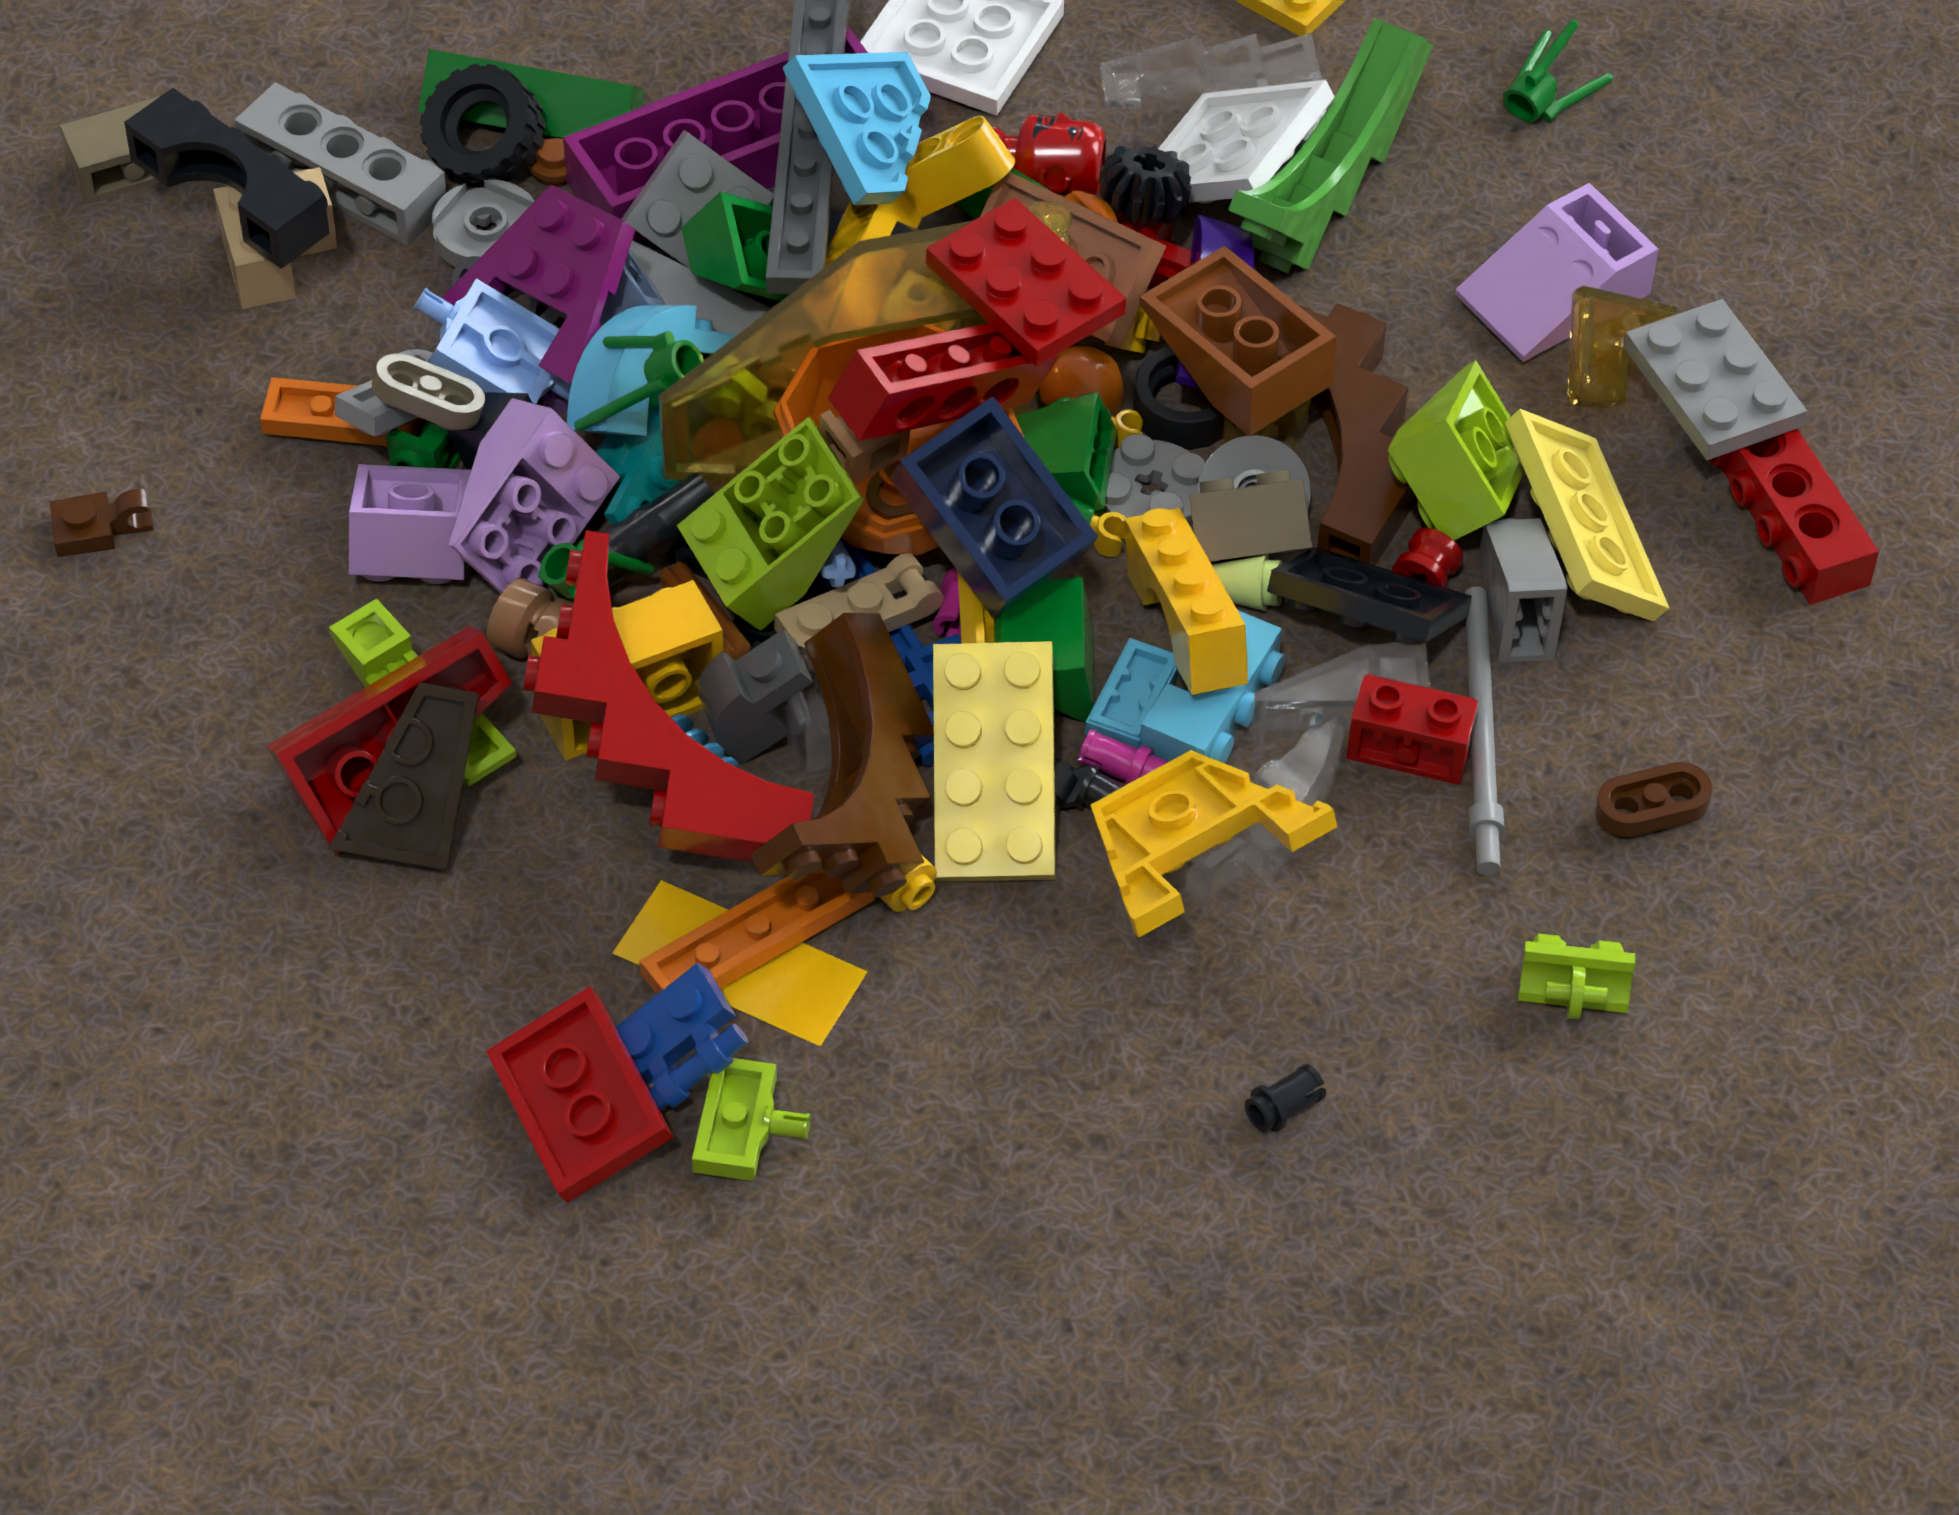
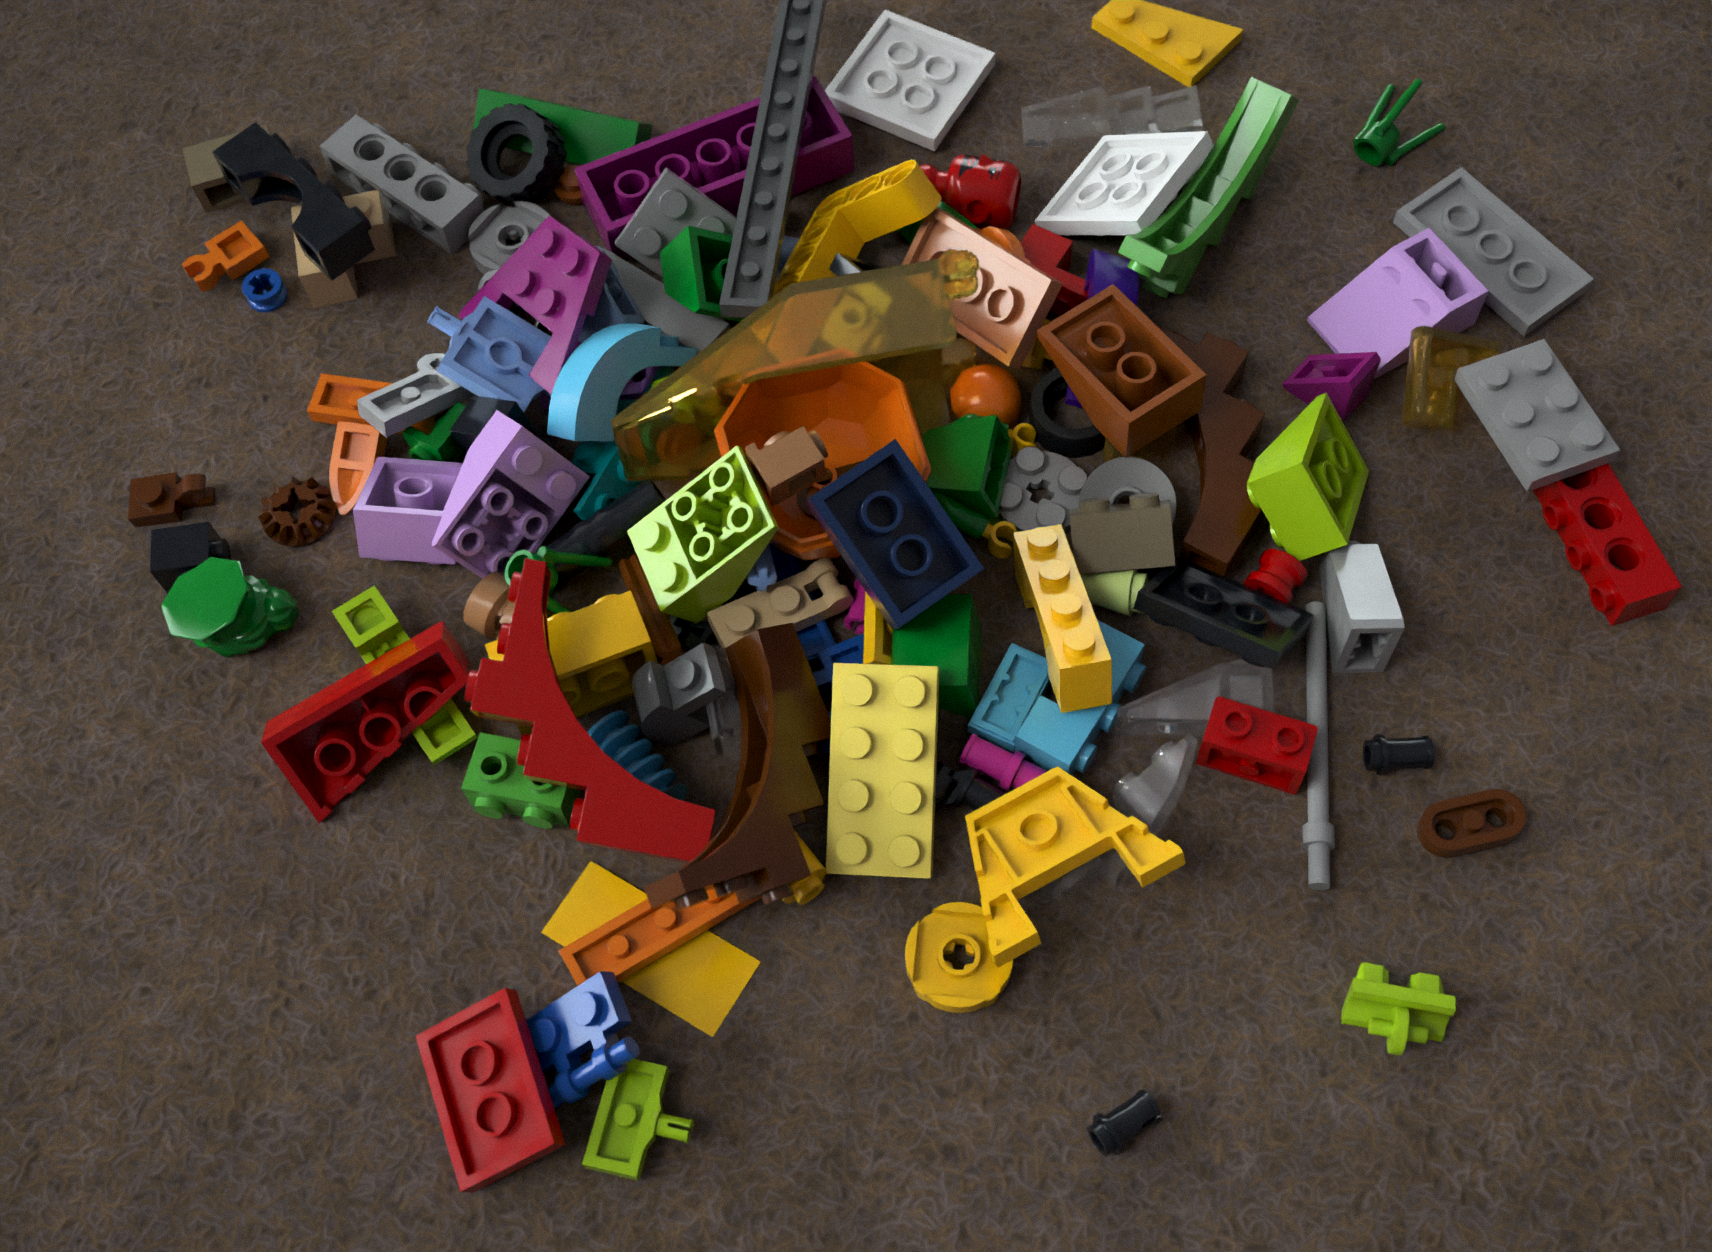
camera: 10 degrees right, 10 degrees up
(129, 247) = (230, 253): none -> orange plate
(140, 581) = (183, 549): none -> black brick
(180, 275) = (261, 279): none -> blue bush
(198, 631) = (226, 609): none -> green piece
(242, 546) = (314, 518): none -> reddish brown gear
(325, 474) = (352, 460): none -> orange plate
(417, 784) = (383, 770): dark brown wing -> none
(428, 391) = (433, 400): dark tan plate -> none
(563, 801) = (498, 786): none -> bright green brick
(662, 369) = (620, 392): green plant -> none
(863, 117) = (815, 159): medium azure plate -> none
(933, 380) = (851, 418): red brick -> none
(1025, 281) = (932, 328): red plate -> none
(1087, 981) = (935, 979): none -> yellow plate
(1145, 184) = (1050, 221): black gear -> none
(1500, 350) = (1341, 375): none -> magenta slope
(1571, 735) = (1397, 753): none -> black pin
(1586, 516) = (1417, 541): light yellow plate -> none
(1700, 230) = (1518, 266): none -> light grey plate

